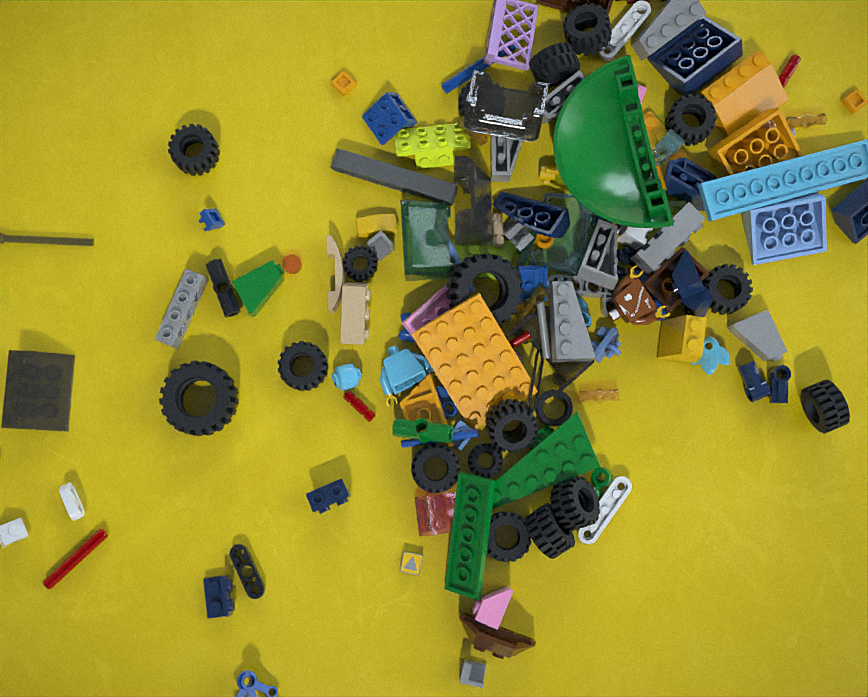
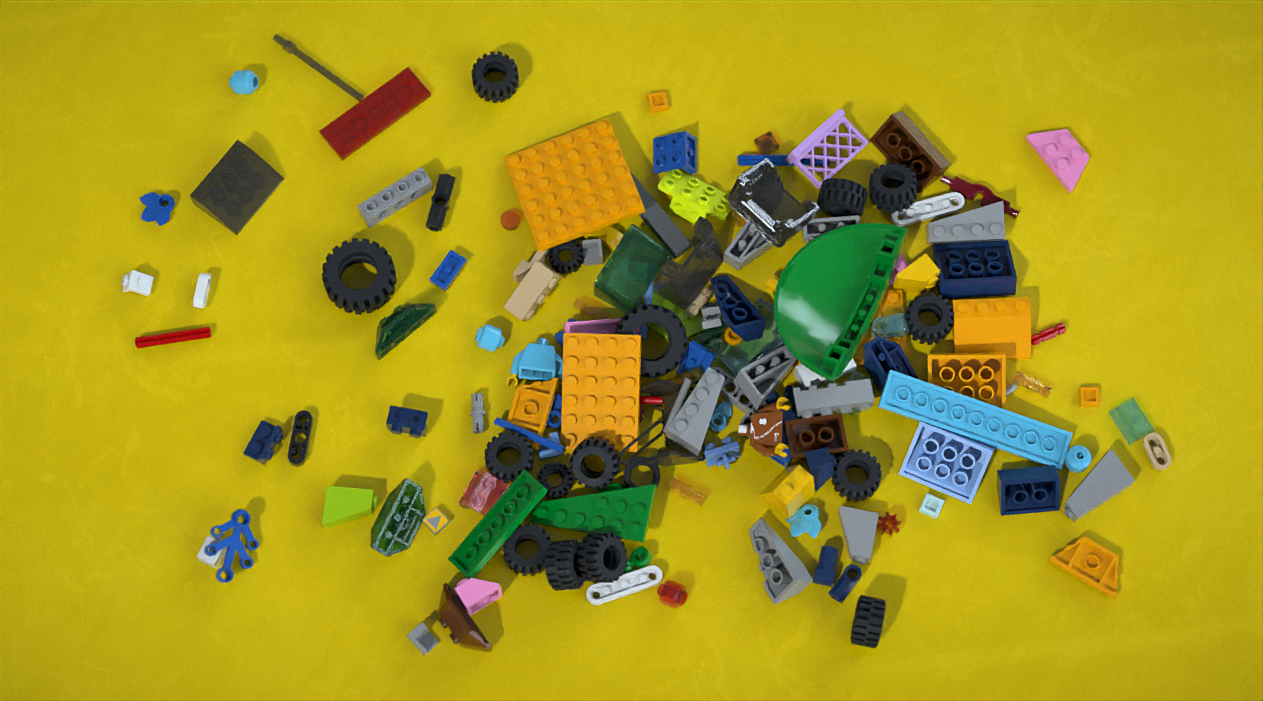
camera: 35 degrees right, 10 degrees down
(113, 247) = (375, 113): none -> clear red plate
(211, 219) = (470, 141): blue tile -> none
(258, 286) = (470, 219): green slope -> none
(263, 417) = (400, 325): none -> clear green wedge
(270, 341) = (448, 270): none -> blue plate
(291, 354) = (455, 292): black tyre -> none
(326, 199) = (574, 185): none -> light orange plate
(327, 602) = (347, 504): none -> lime slope
(359, 406) = (483, 369): red axle -> none
(380, 587) = (398, 519): none -> clear green wedge
(381, 447) = (477, 413): none -> light grey pin
(413, 295) = (590, 309): none -> clear yellow axle
(433, 432) = (519, 418): green piece -> none
(456, 60) = (766, 144): none -> clear orange tile
(649, 490) = (672, 594): none -> clear red head
(661, 89) = (918, 276): none -> yellow slope
(686, 277) = (823, 436): dark blue slope -> none
(718, 407) = (781, 567): none -> light grey wedge
(783, 312) = (892, 520): none -> clear red gear
(797, 273) = (931, 506): none -> light aqua tile

